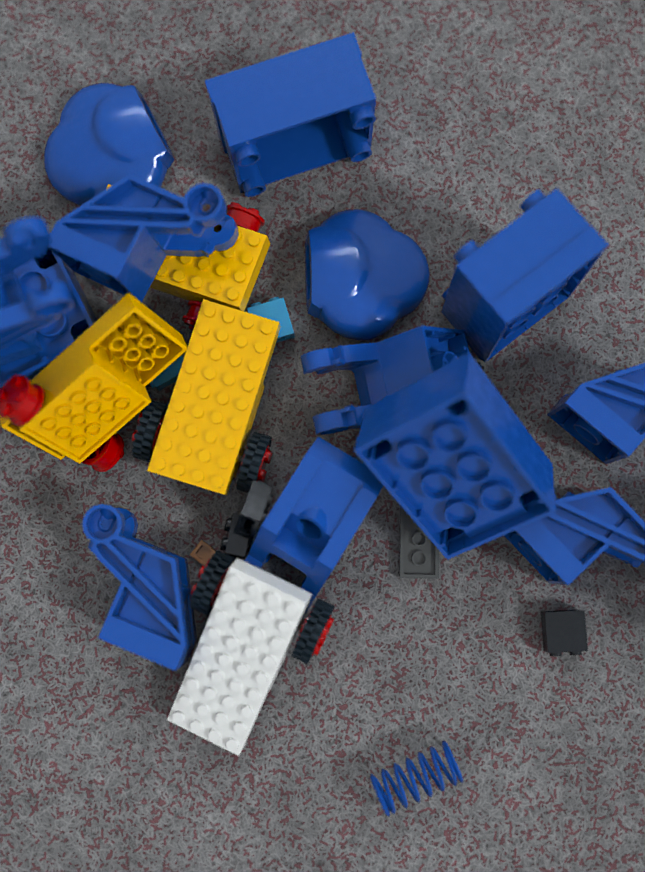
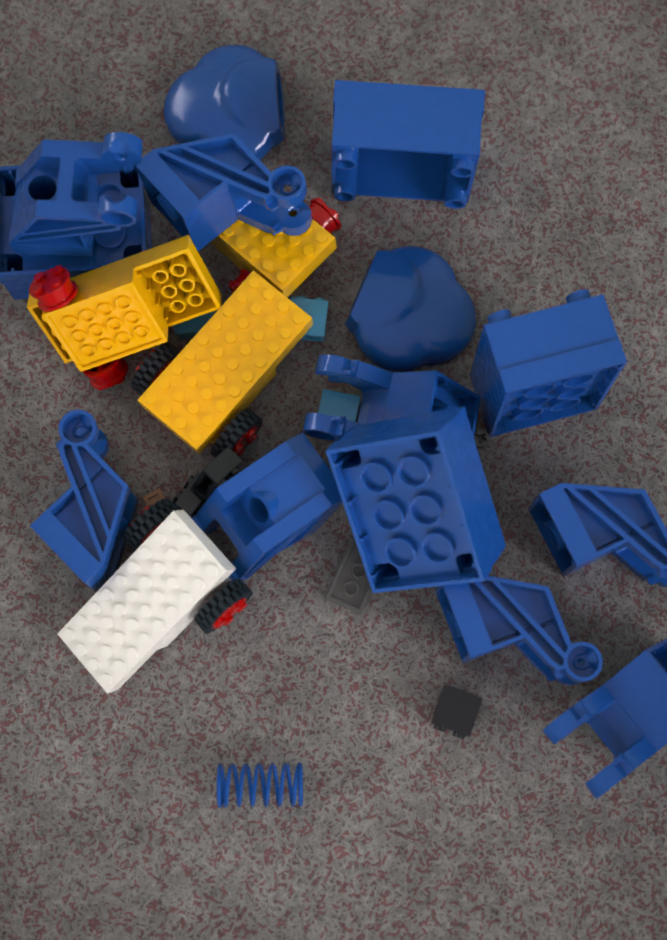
camera: 20 degrees right, 5 degrees down
(336, 394) = (339, 404): none -> dark azure brick

